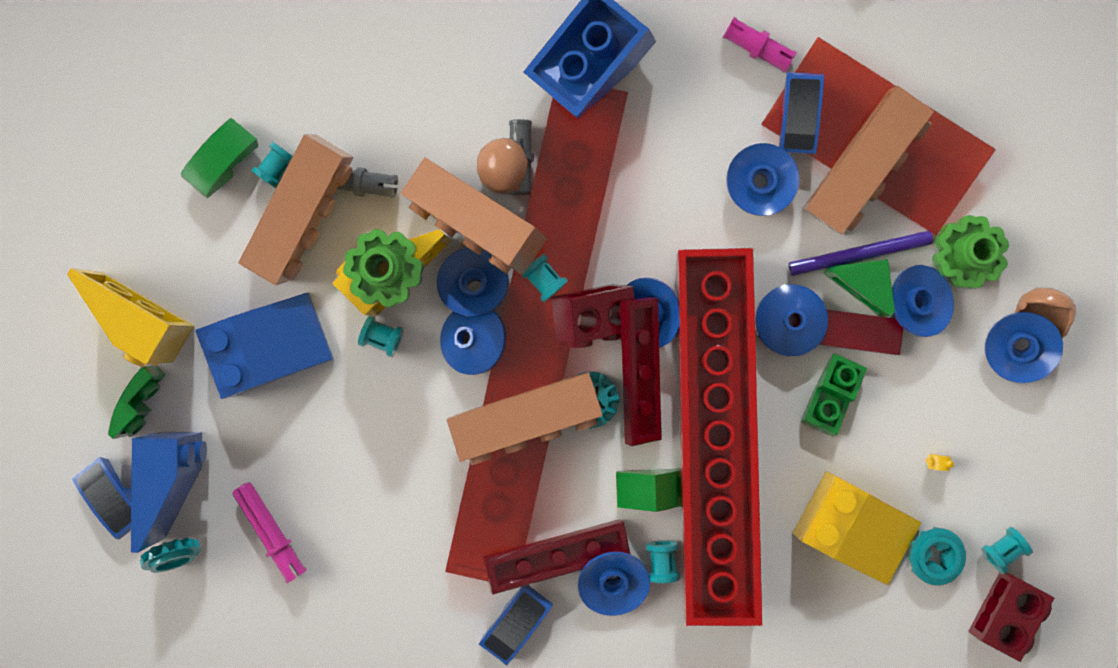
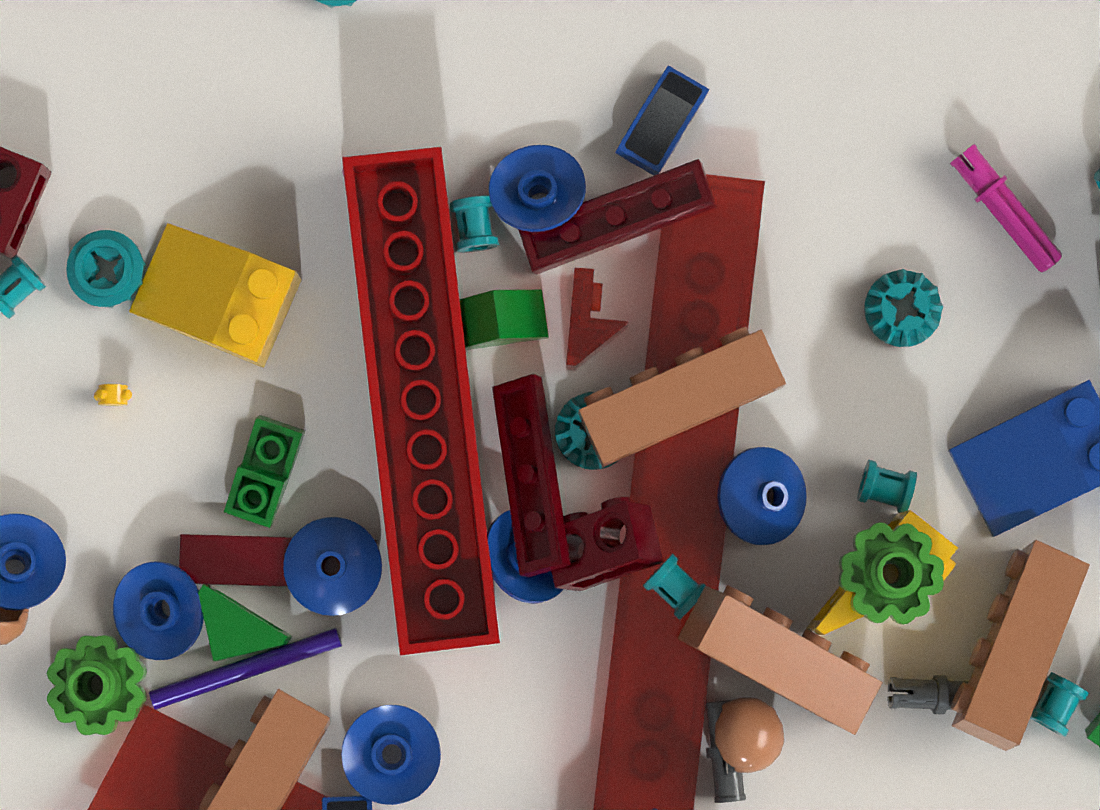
camera: 170 degrees right, 5 degrees down
(370, 464) = (881, 314): none -> teal gear
(461, 270) = (795, 573): blue dish -> none
(589, 471) = (588, 334): none -> clear red slope

